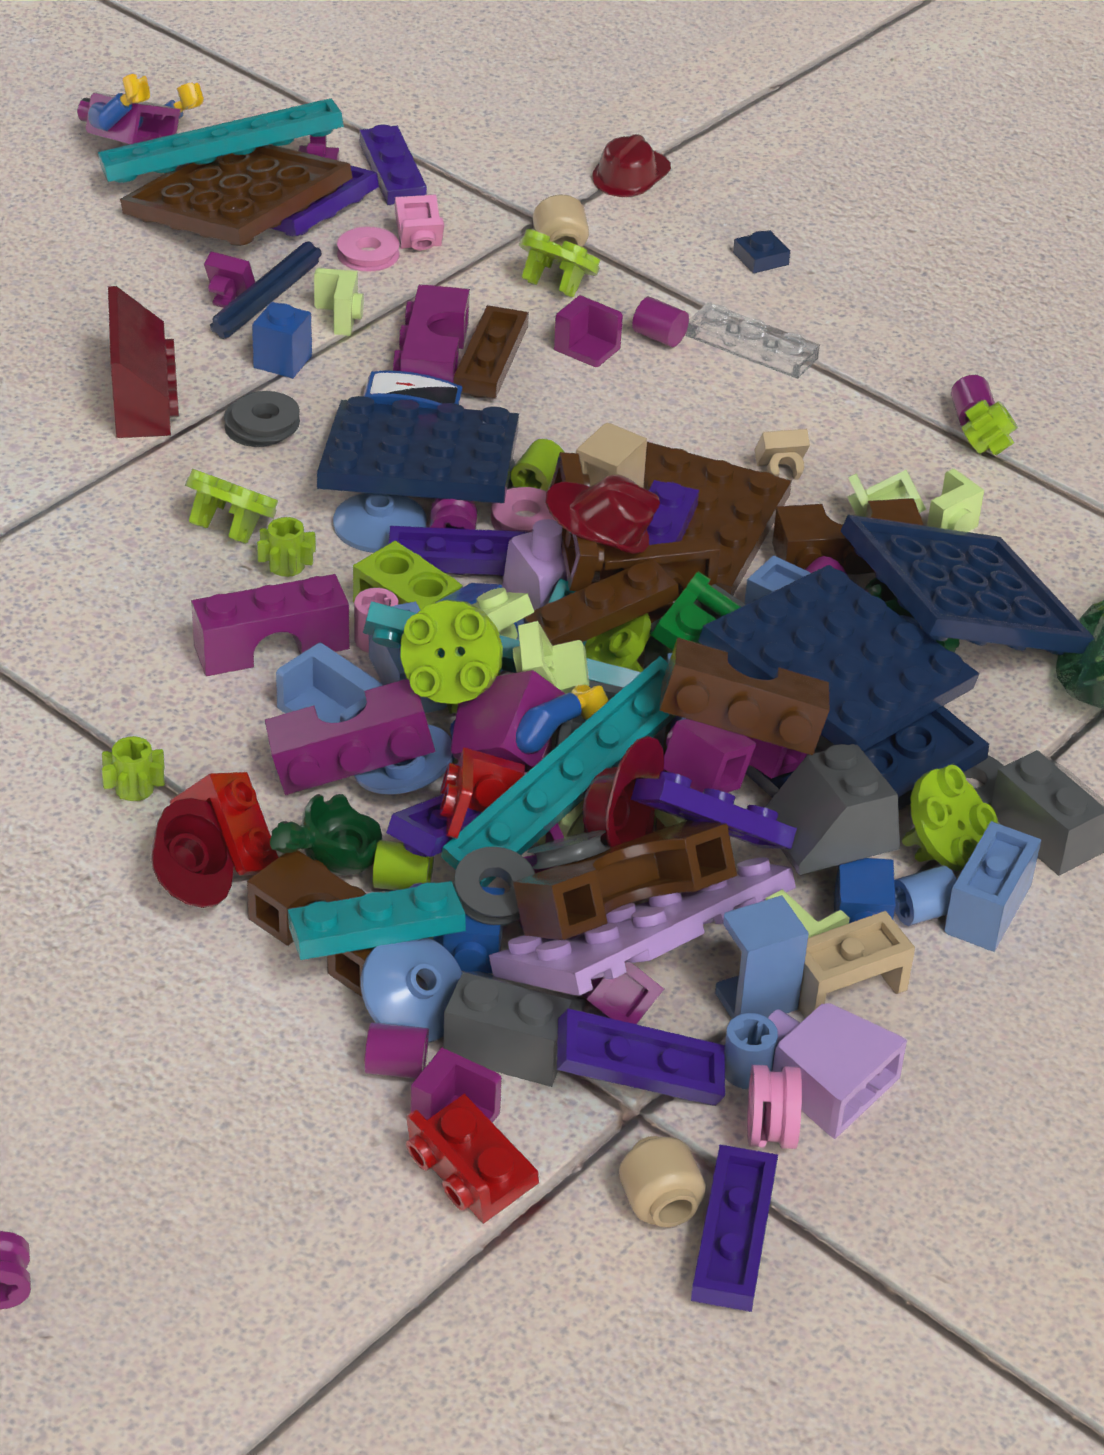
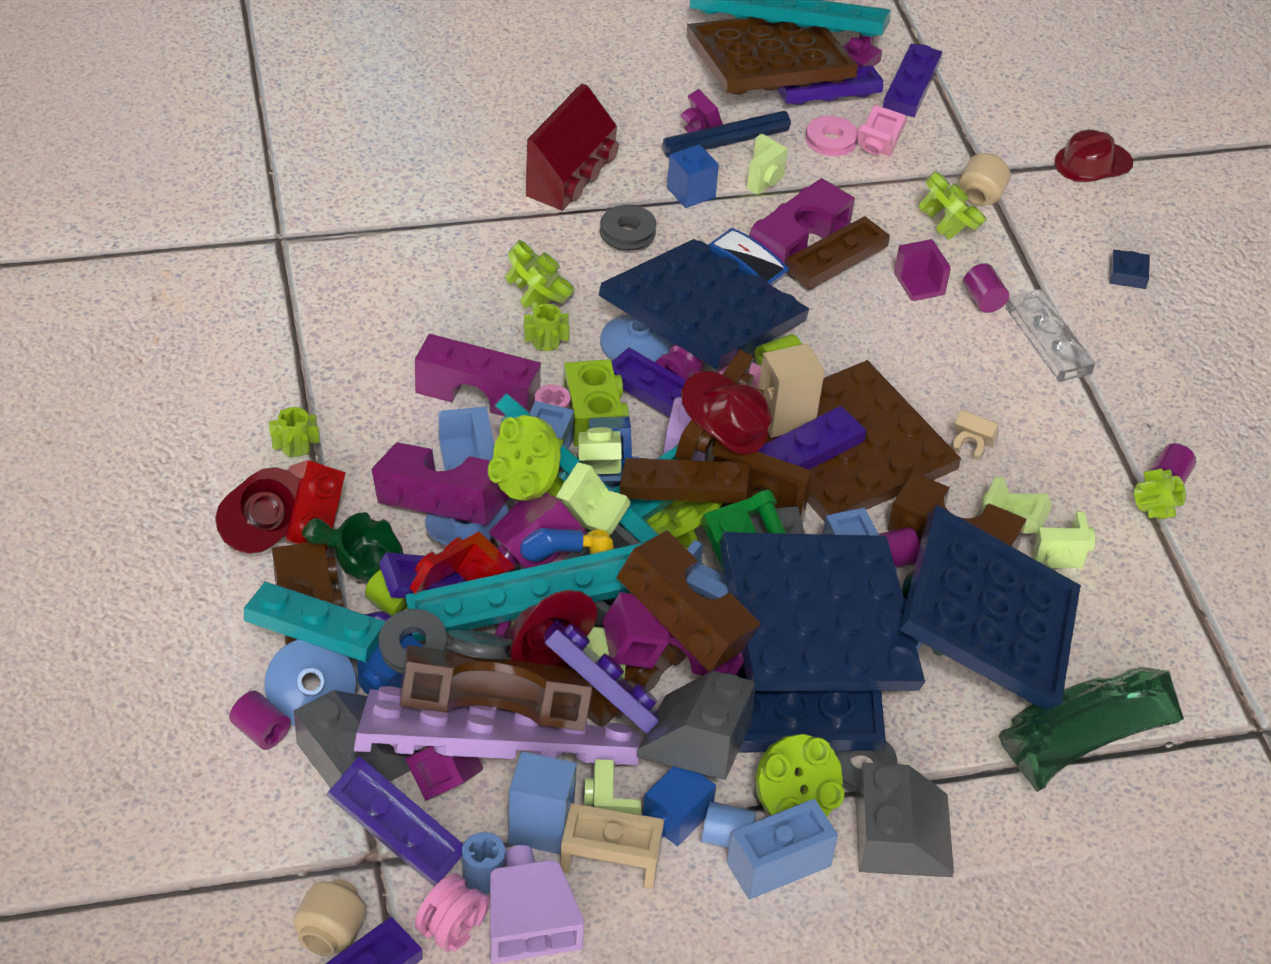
camera: 35 degrees right, 5 degrees up
(450, 1077) = (260, 776): magenta panel -> none
(471, 1157) = (229, 822): red bracket -> none

